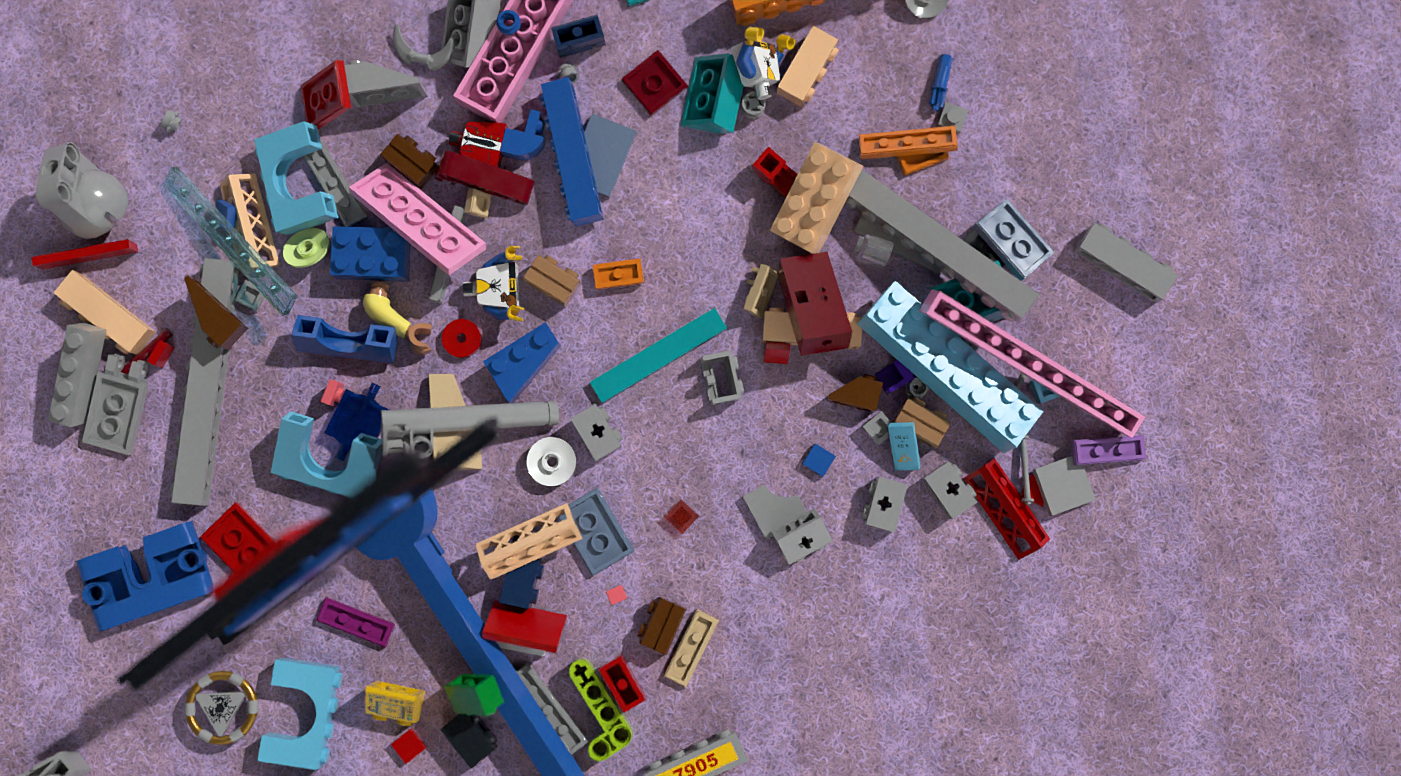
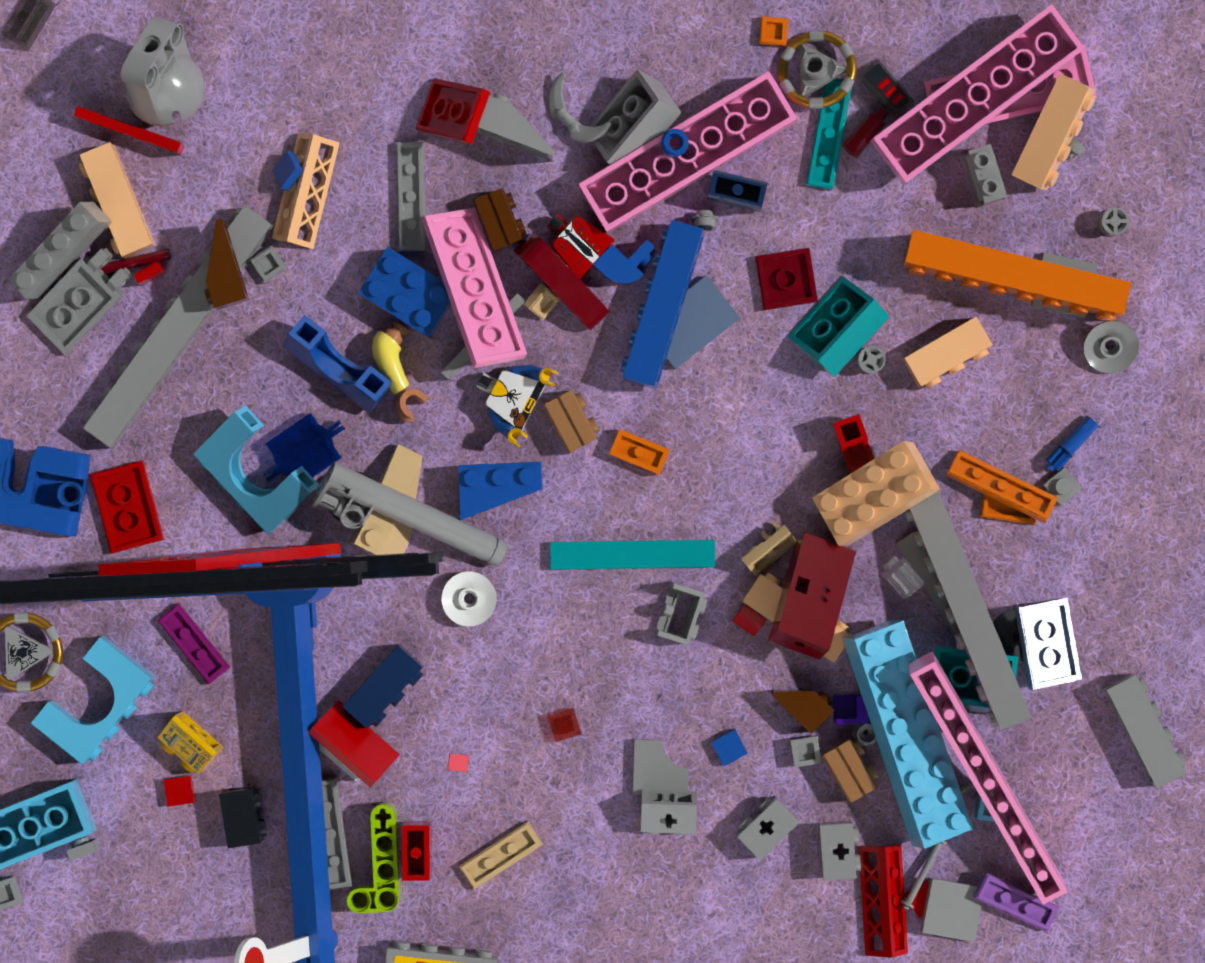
camera: 40 degrees right, 5 degrees up
(171, 121) = (286, 42): light grey plate -> none
(230, 241) = (278, 201): clear light blue tile -> none
(275, 156) = (368, 139): medium azure arch -> none
(306, 247) = (349, 240): yellowish green dish -> none
(333, 393) = (296, 409): coral plate -> none
(450, 338) = (462, 429): red piece -> none
(474, 694) = (271, 781): green brick -> none
(529, 545) = (402, 670): light nougat fence -> none
(597, 446) = (521, 609): light grey brick -> none
(601, 533) = (472, 690): sand blue tile -> none
(662, 625) = (485, 818): reddish brown brick -> none
(759, 60) = (900, 323): torso -> none
(904, 446) = (818, 783): medium azure tile -> none

